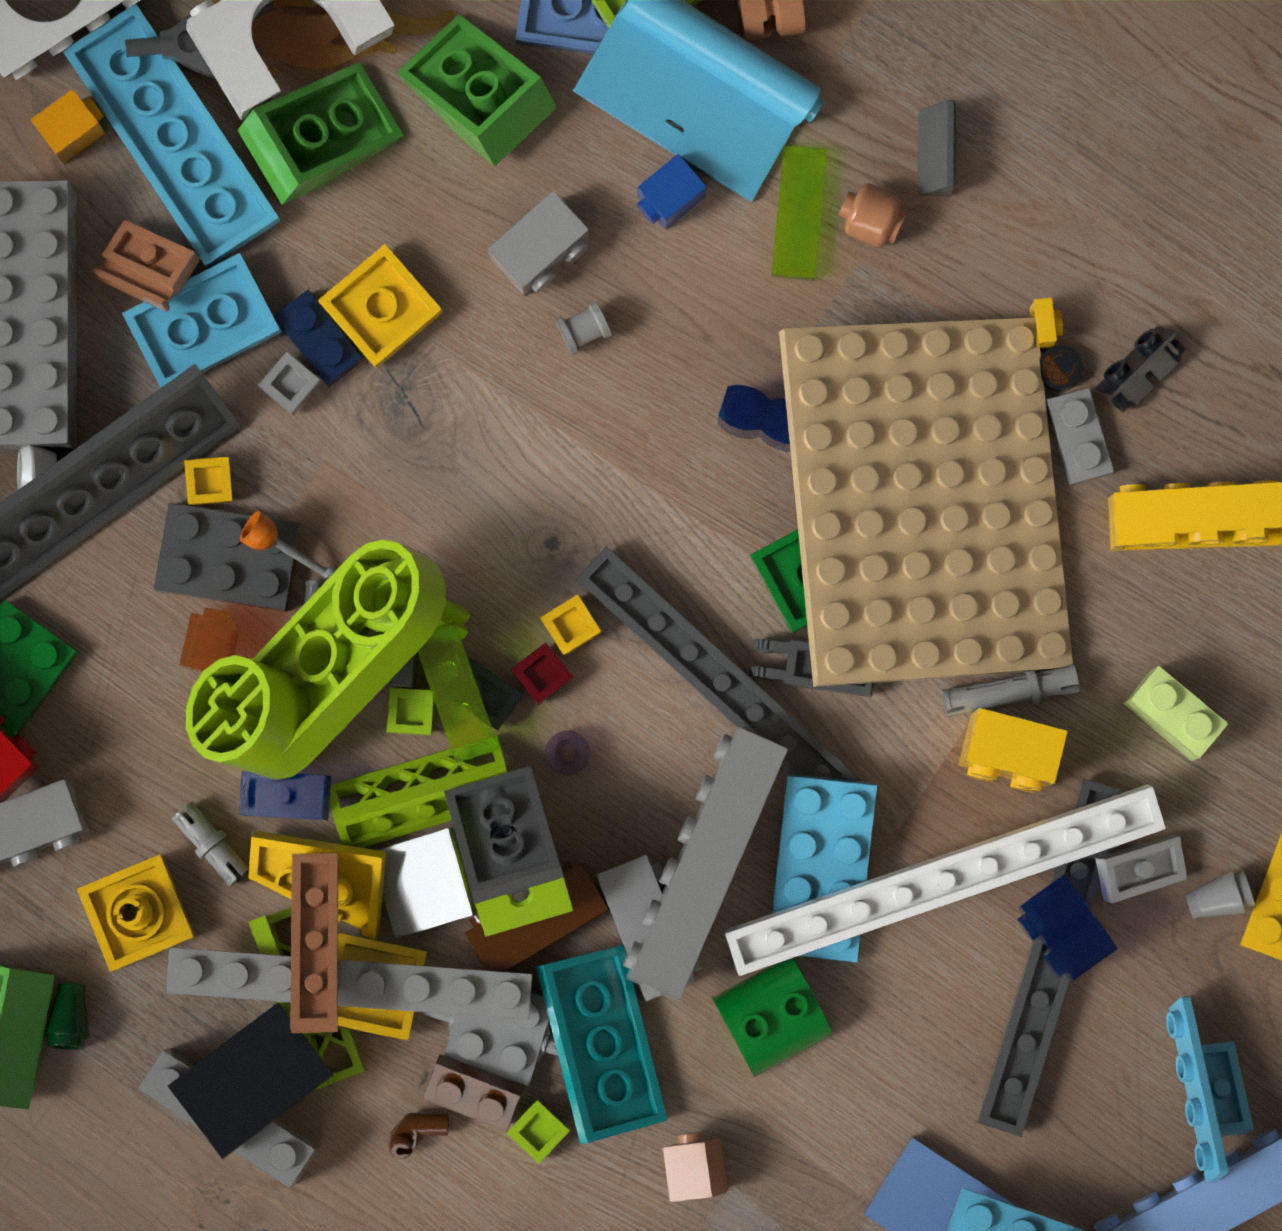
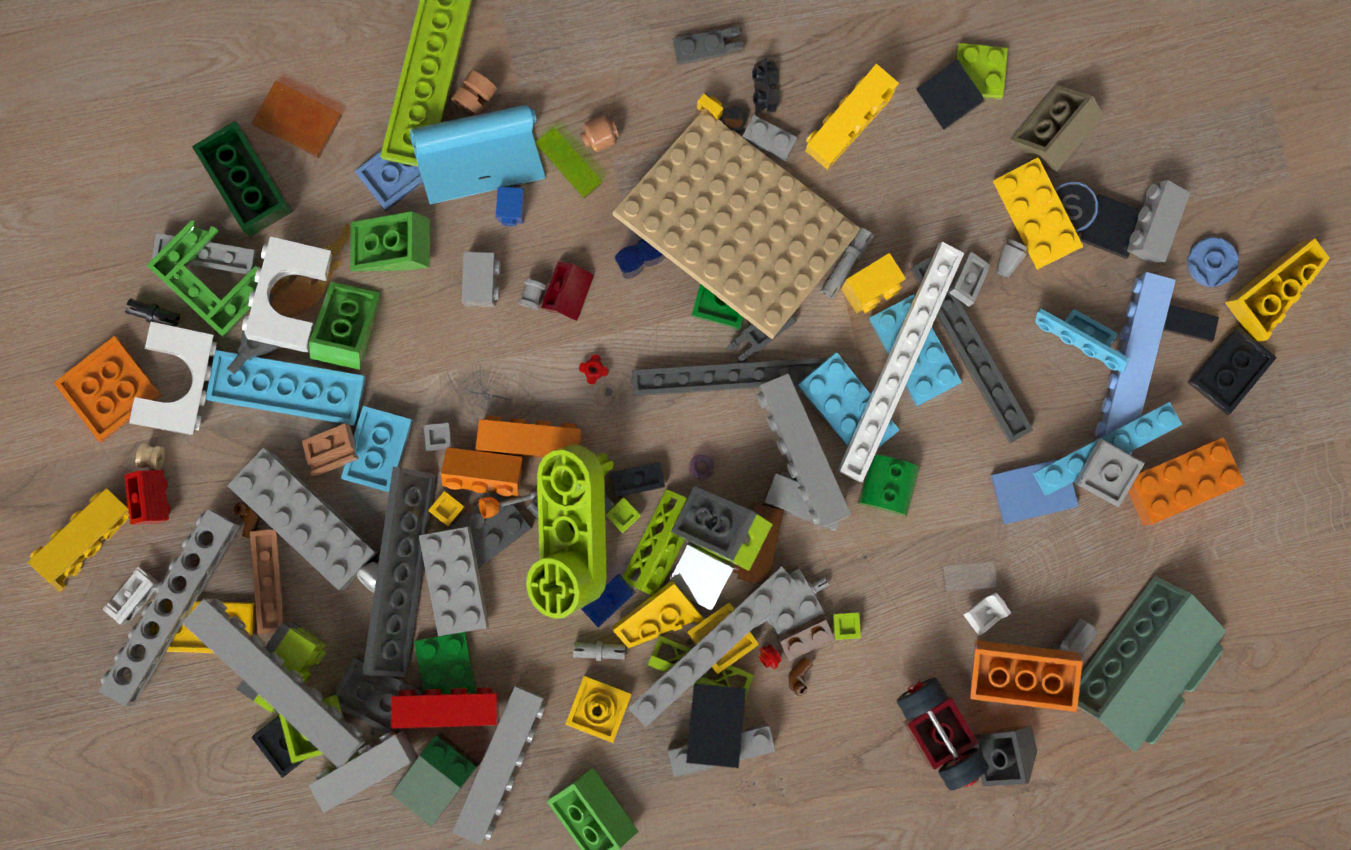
camera: 50 degrees left, 0 degrees up
(68, 1018) = (616, 779): dark green cone -> none
(69, 125) = (239, 426): light orange brick -> none
(126, 577) = (454, 581): none -> light grey plate
(208, 639) = (513, 571): clear orange brick -> none
(296, 481) = (482, 471): none -> orange brick
(314, 943) = (684, 644): nougat plate -> none
(318, 338) = (430, 407): dark blue plate -> none
(380, 306) = (442, 369): yellow plate -> none
(389, 494) = (523, 438): none -> orange brick
(405, 1069) = (769, 657): none -> red plate
(456, 694) = (636, 489): clear neon green tile -> none
(542, 673) = (659, 446): dark red plate -> none
(552, 505) = (601, 370): none -> red plate
(570, 625) = (650, 415): yellow plate -> none
(601, 1044) = (836, 565): teal plate -> none
(632, 368) = (567, 290): none -> dark red panel
(695, 1167) = (922, 575): brick -> none
(937, 149) = (597, 82): dark grey slope -> none
(978, 930) = (933, 369): none -> medium azure plate
(1065, 928) = (967, 331): clear blue brick -> none
(1121, 241) = (706, 45): none -> dark grey hinge
(1175, 713) = (919, 205): yellowish green brick -> none

